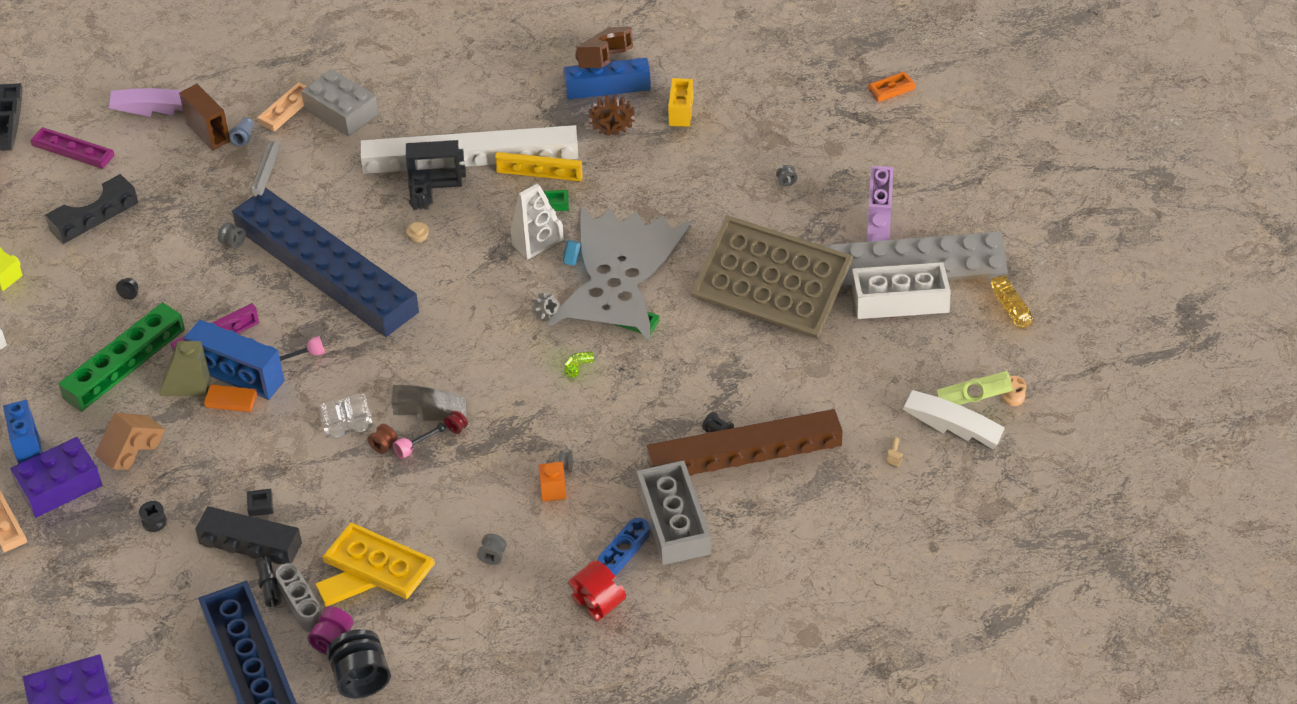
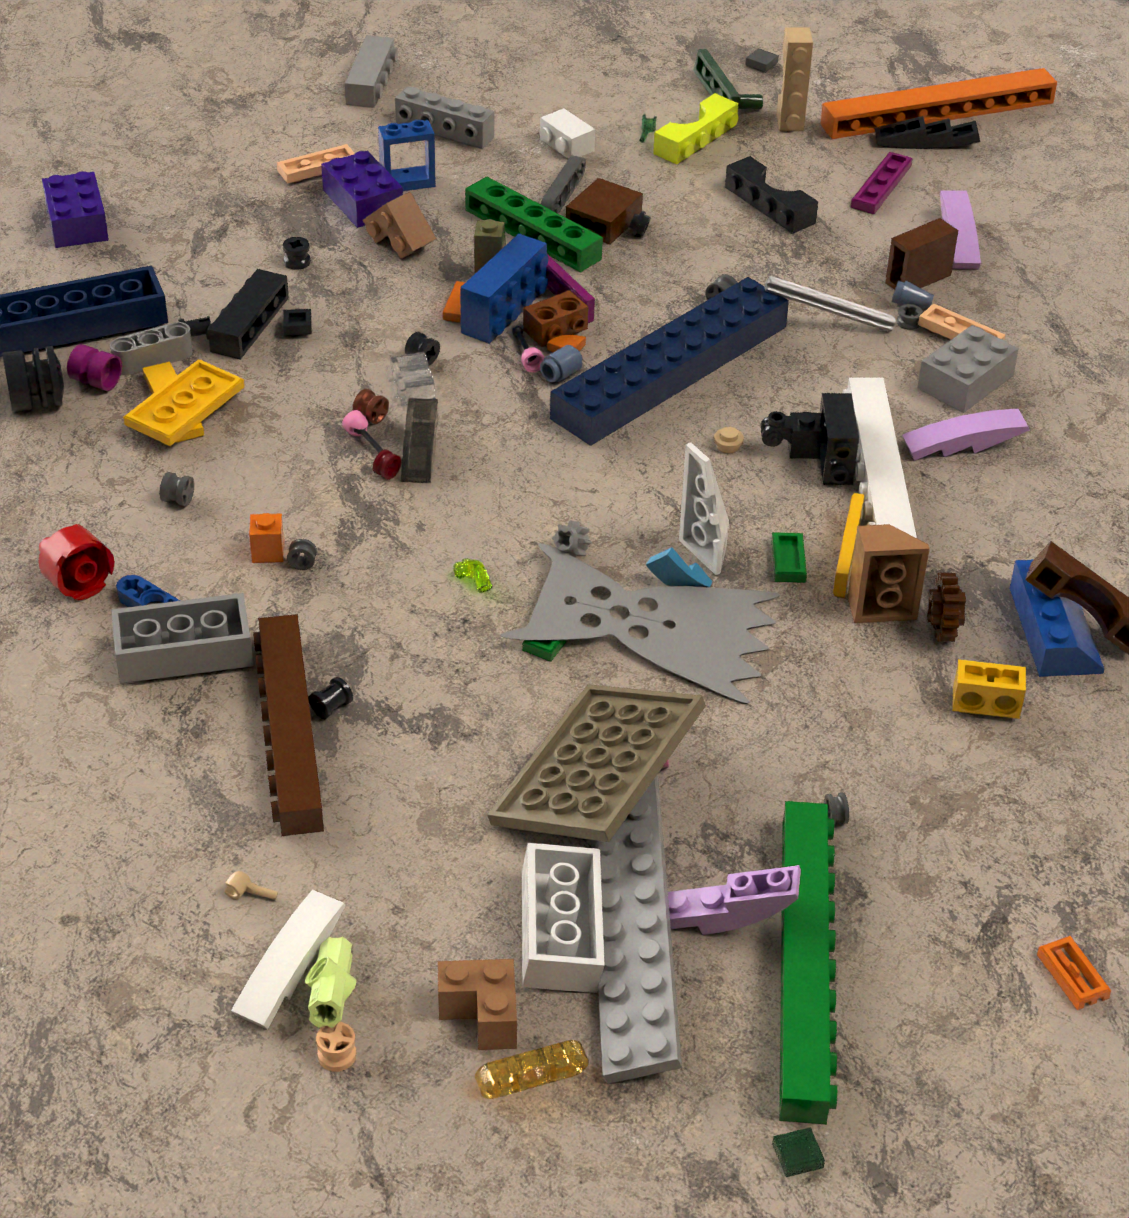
camera: 90 degrees right, 5 degrees down
(62, 340) = (564, 184): none -> dark grey beam
(106, 310) = (605, 209): none -> reddish brown brick
(264, 134) = (909, 316): none -> dark grey bush
(265, 329) = (555, 317): none -> dark orange brick
(295, 328) = (558, 342): none -> orange tile
(304, 413) = (420, 343): none -> black wheel
(327, 326) = (561, 364): none -> sand blue brick
(414, 104) = (974, 430): none -> lavender slope
(591, 137) = (886, 574): none -> medium nougat slope
(908, 188) = (807, 970): none -> green brick
(967, 321) = (484, 993): none -> medium nougat brick
(1037, 195) = (798, 1152): none -> clear green tile

